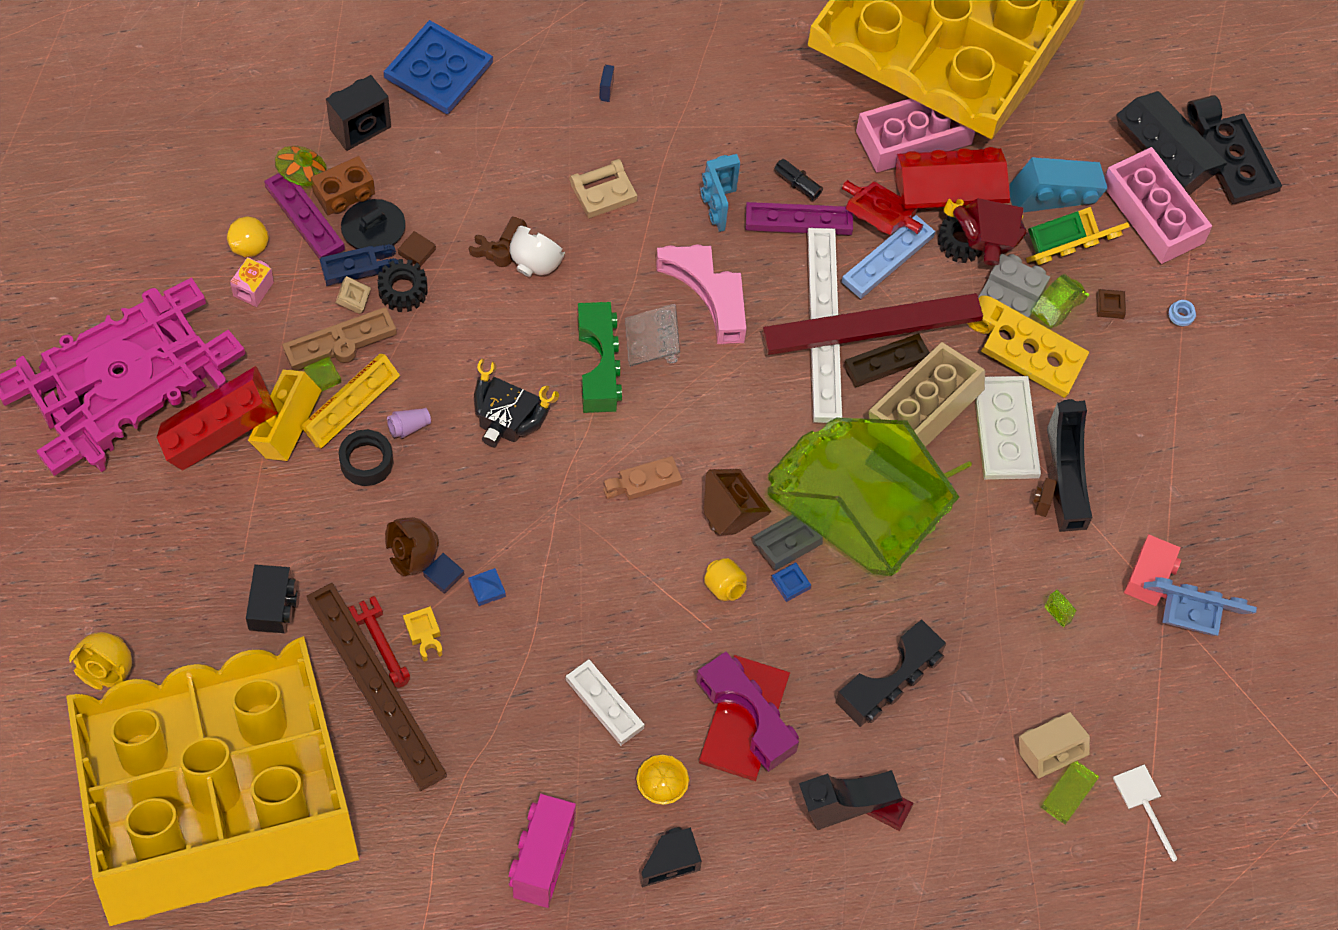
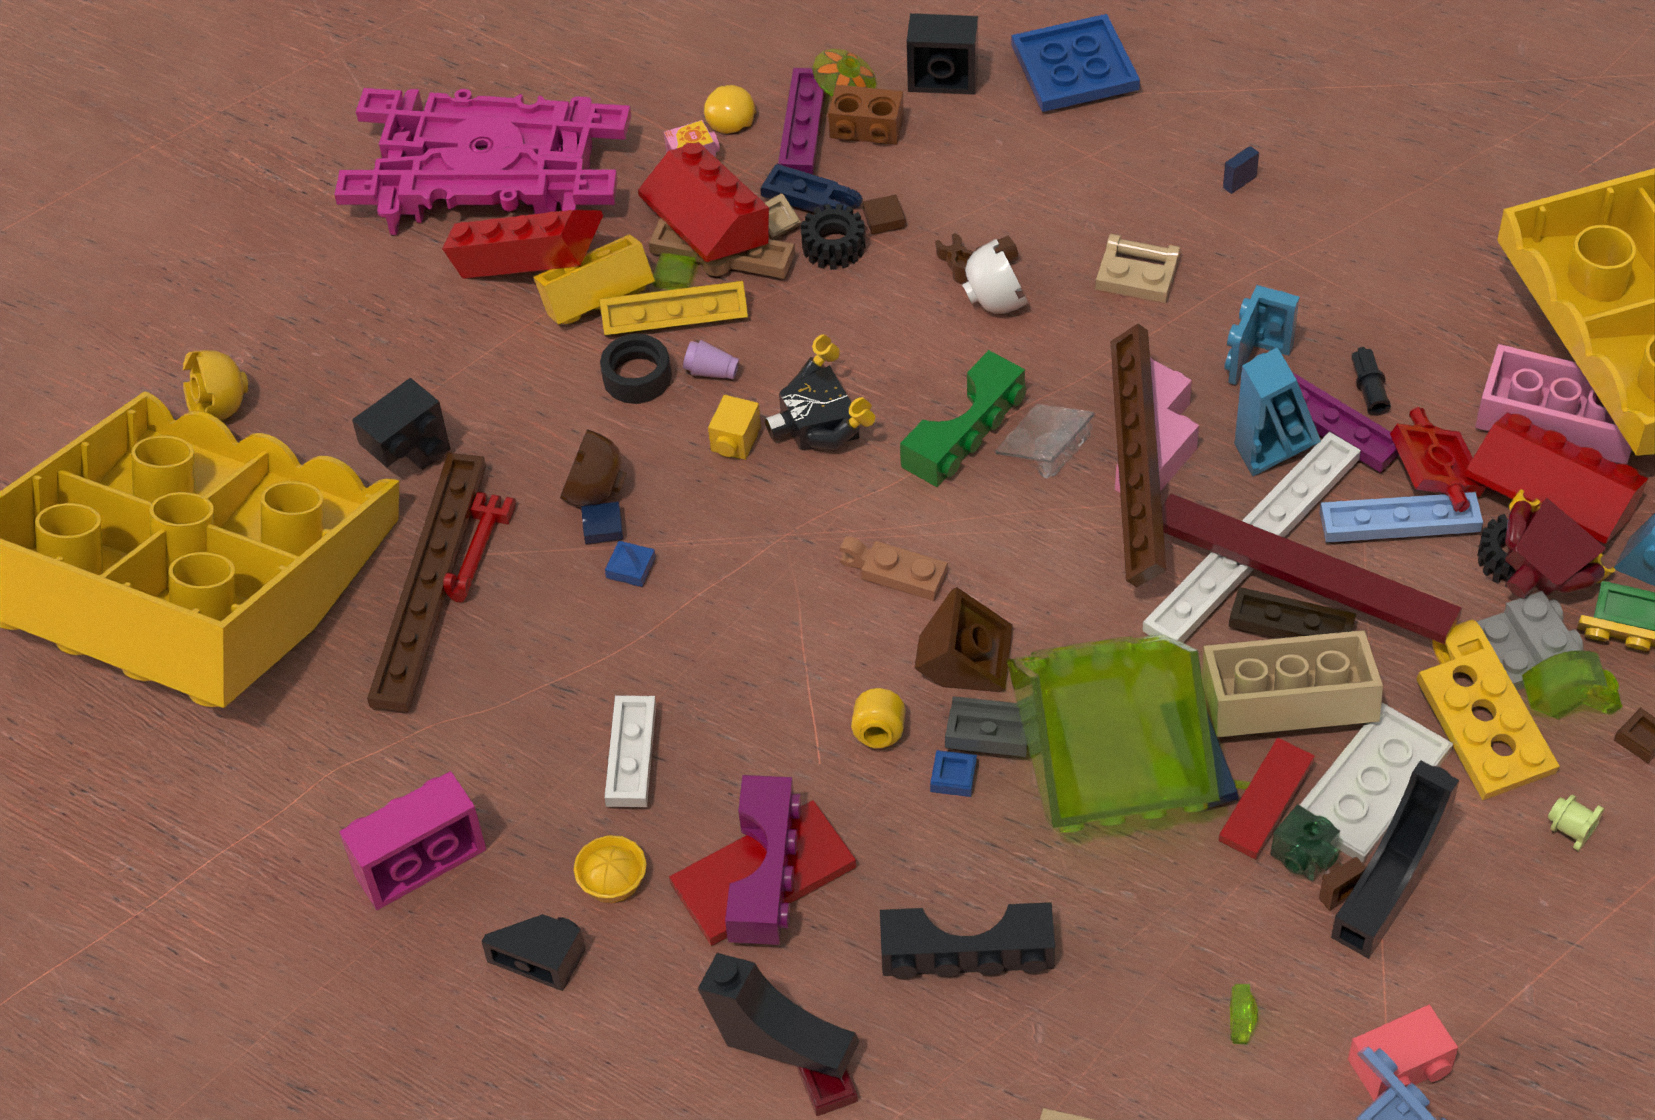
camera: 50 degrees right, 10 degrees down
(307, 315) = (706, 203): none -> red slope
(373, 224) = (865, 167): black shield -> none
(423, 629) = (524, 558): yellow plate -> none
(467, 455) = (734, 427): none -> yellow brick
(731, 315) = (1137, 457): none -> reddish brown plate
(781, 240) = (1271, 414): none -> dark azure wedge
(965, 476) = (1266, 798): none -> red tile
(1011, 488) = (1306, 843): none -> clear green brick
(1123, 378) = (1575, 820): none -> yellowish green brick

